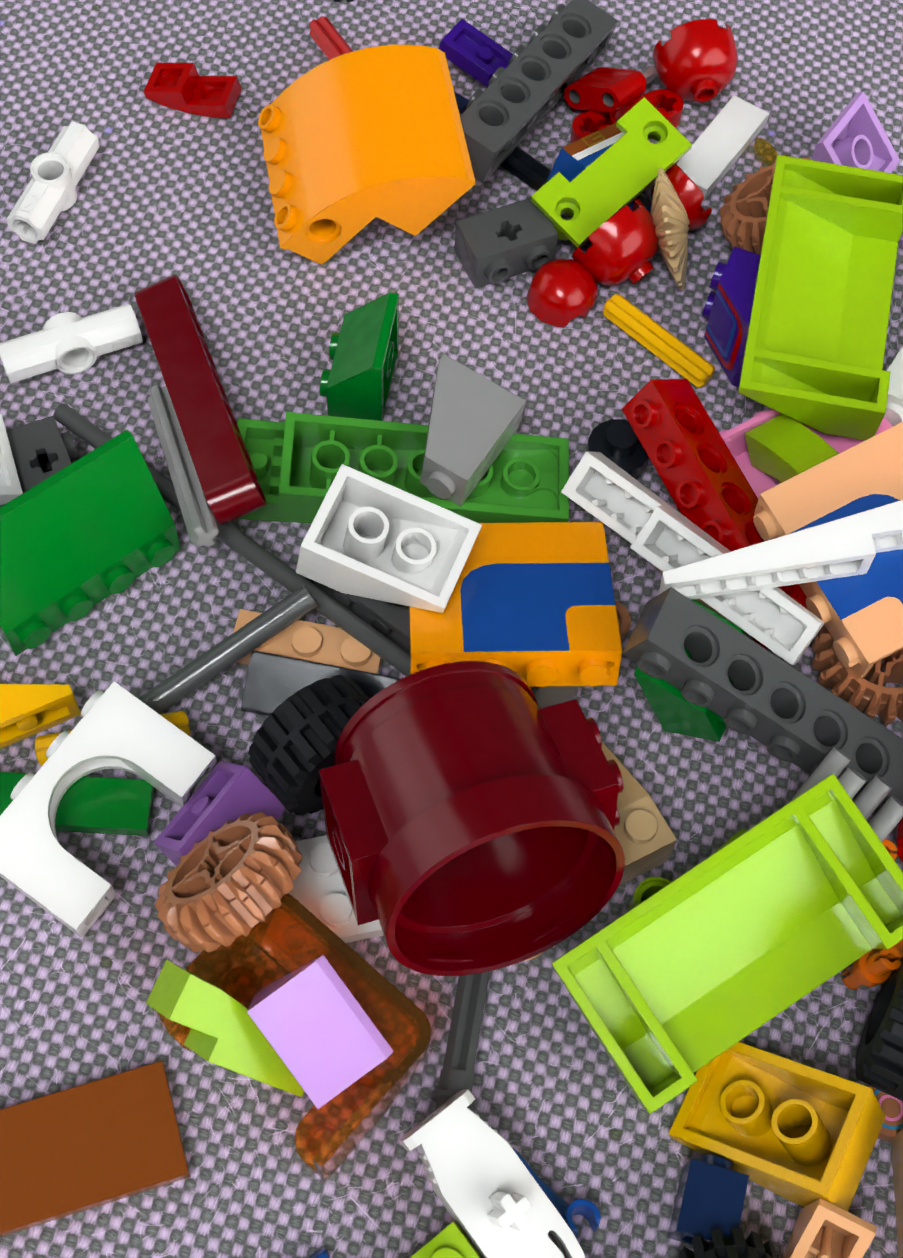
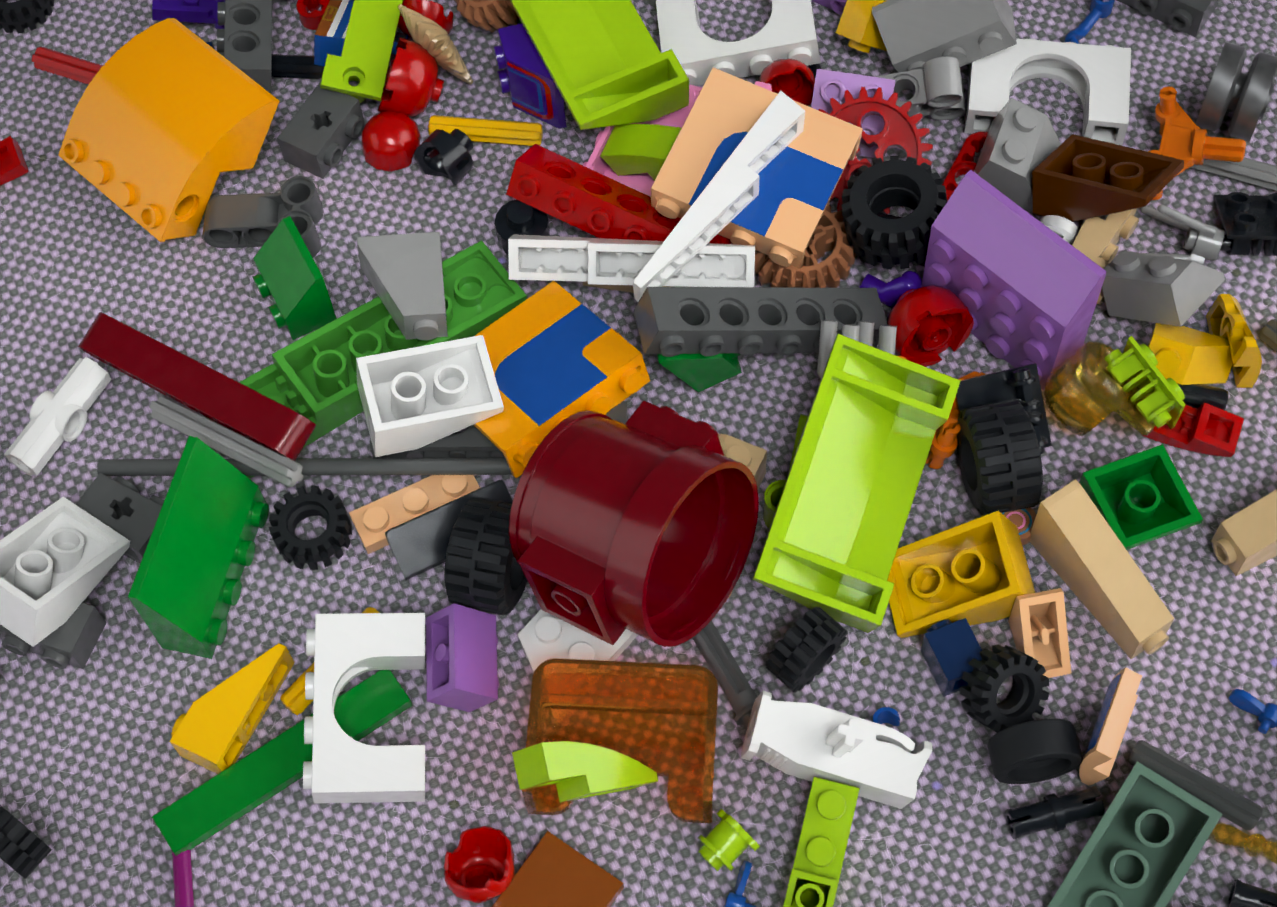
camera: 30 degrees left, 0 degrees up
(68, 1045) = (480, 865): none -> red hair
(192, 573) = (304, 506): none -> black tyre
(229, 650) = (370, 538): dark grey piece -> none
(229, 882) = (509, 678): nougat gear -> none
(317, 1215) = (725, 842): none -> lime brick
(318, 1030) = (643, 721): lavender slope -> none
(366, 273) = (252, 218): none -> dark grey piece
(556, 1077) = (806, 649): none -> black tyre
(603, 340) = (449, 155): none -> black piece

